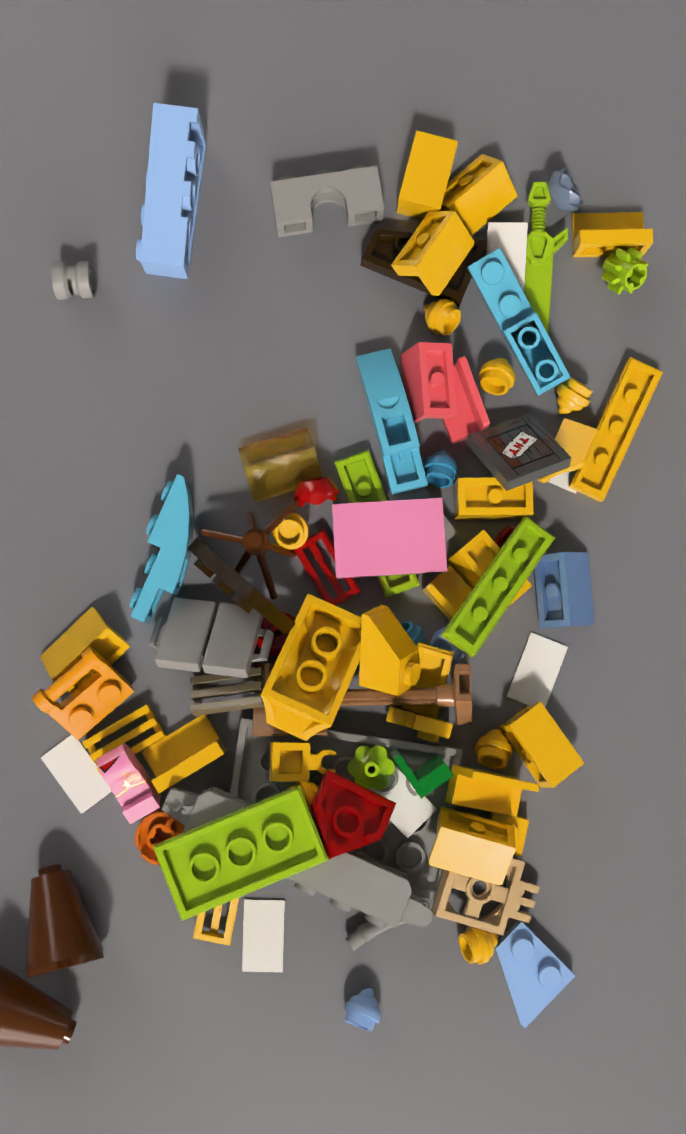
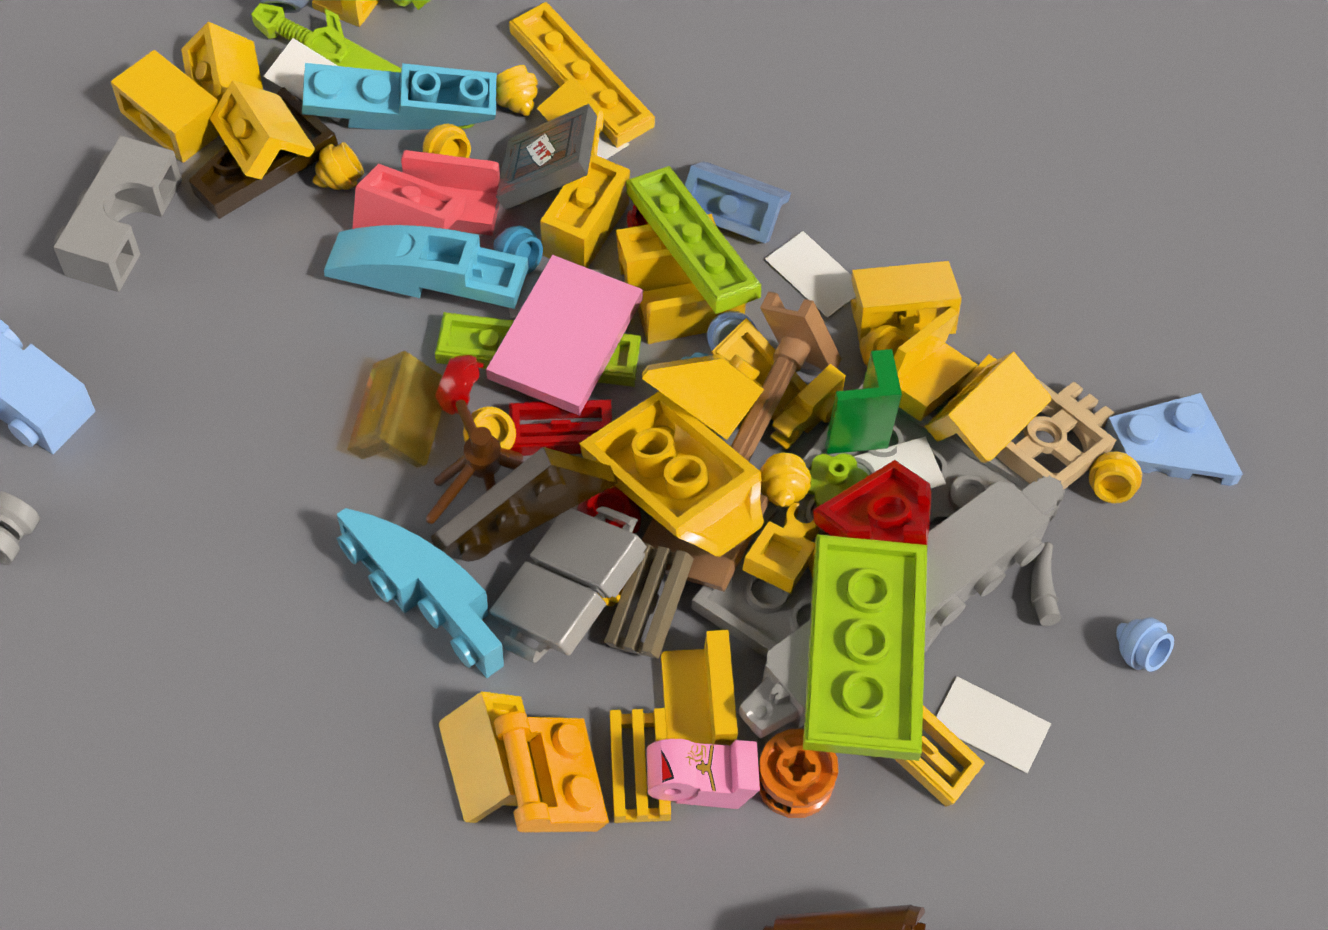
camera: 60 degrees left, 25 degrees down
(76, 773) = (652, 855): white sticker -> none
(345, 738) = (785, 479): none -> yellow plate

